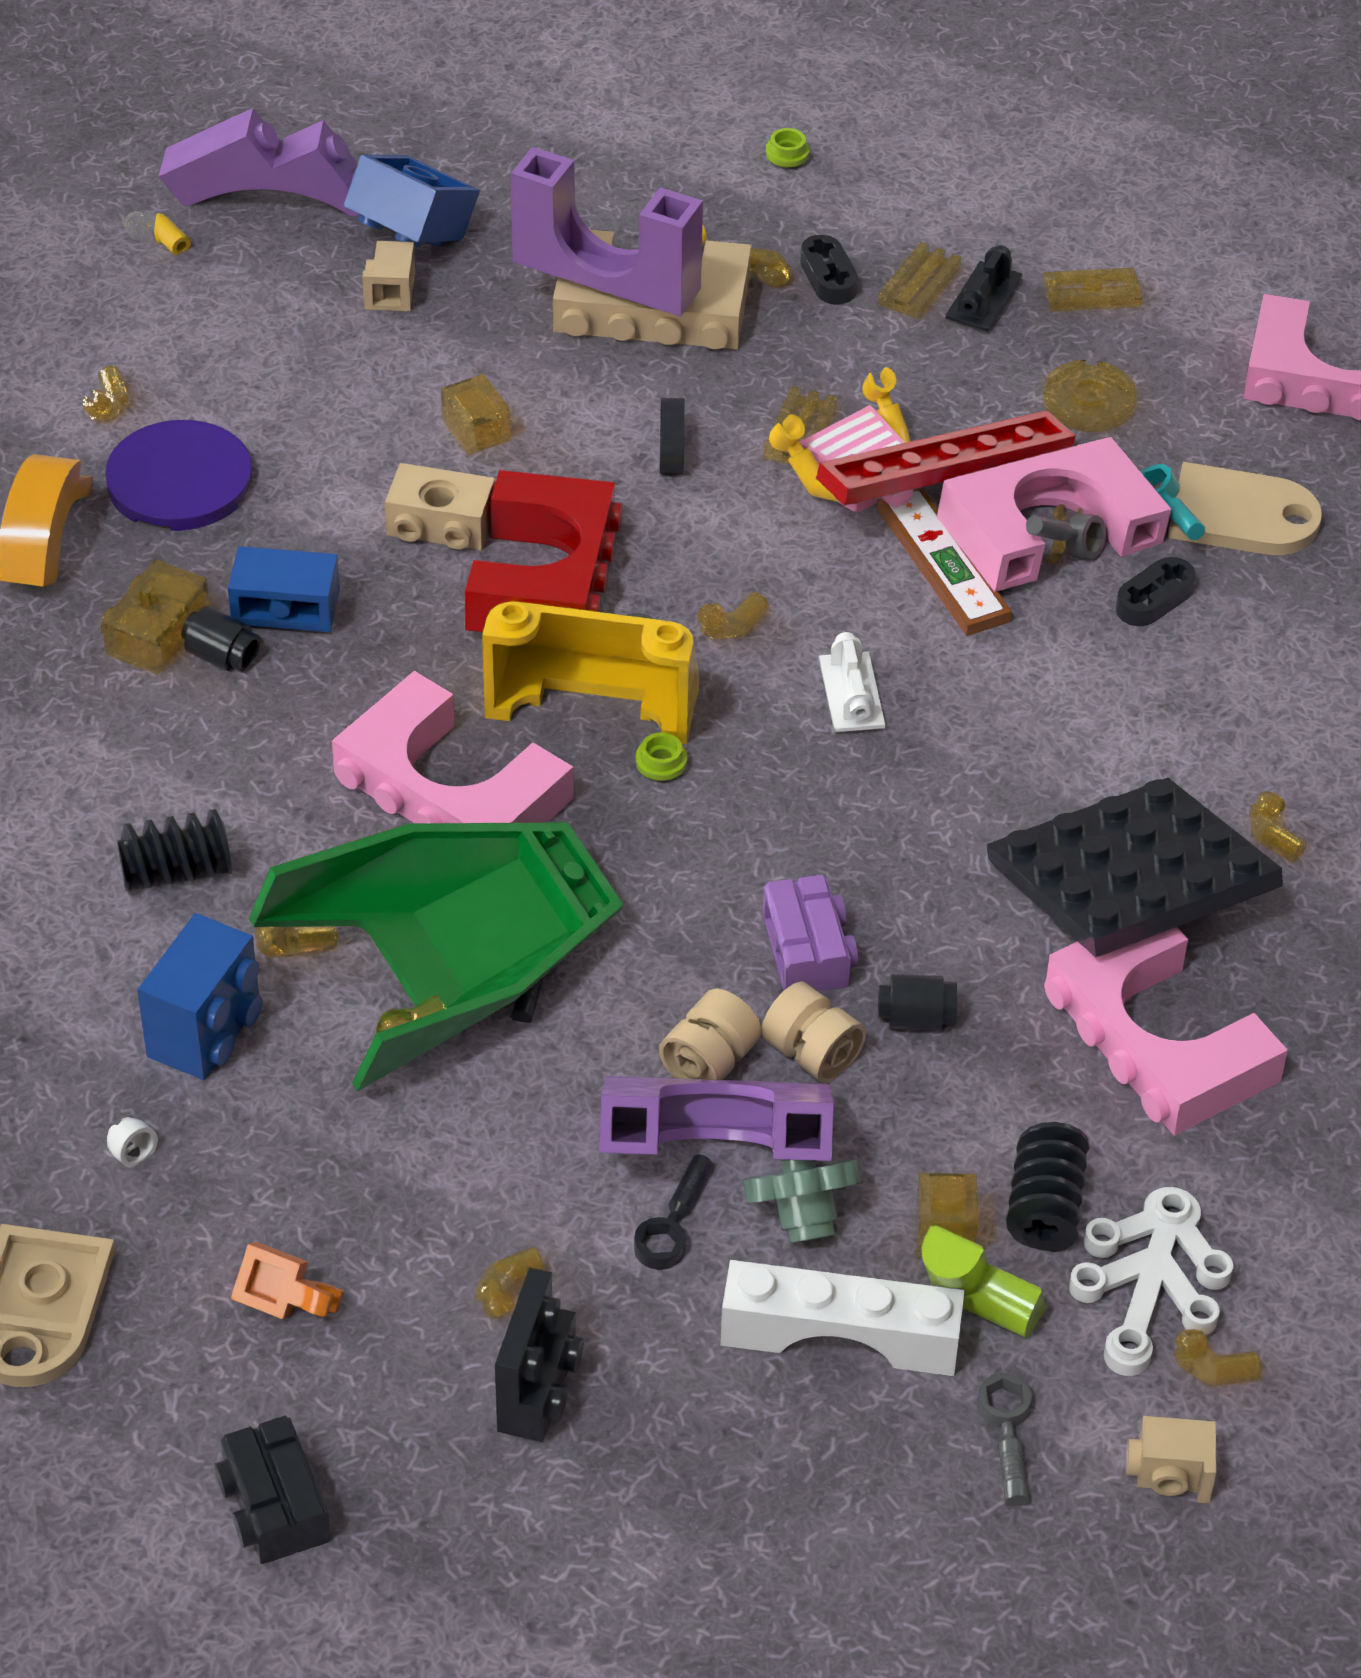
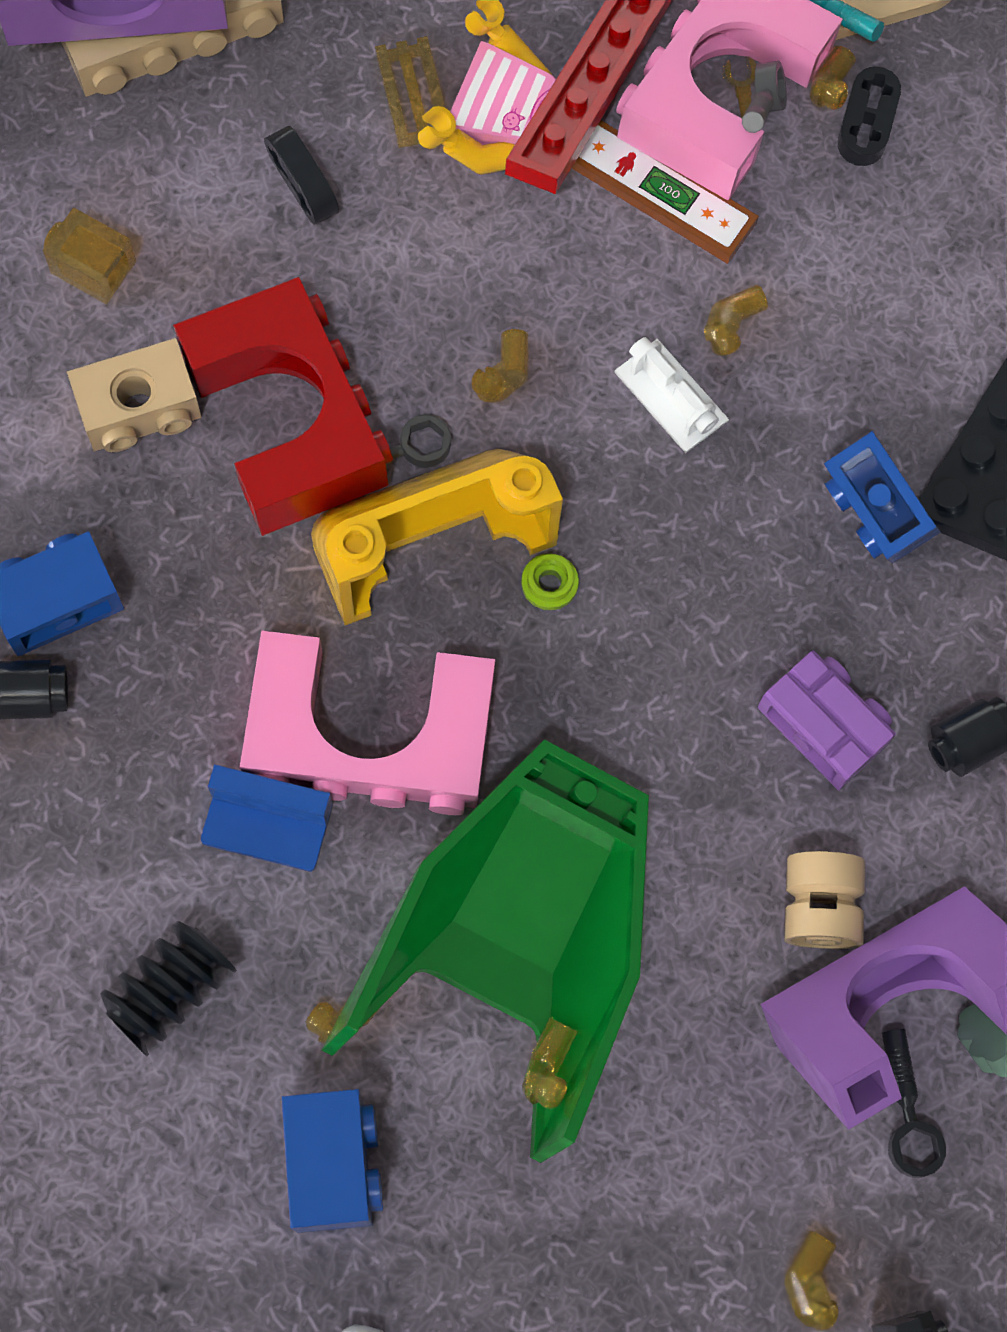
camera: 35 degrees left, 25 degrees up
(332, 793) = (266, 818): none -> blue panel
(808, 1027) = (910, 833): tan wheel -> none
(940, 661) = (727, 315): none -> clear yellow arm
(960, 814) = (881, 498): none -> blue brick
(1134, 556) = (828, 84): none -> clear yellow arm

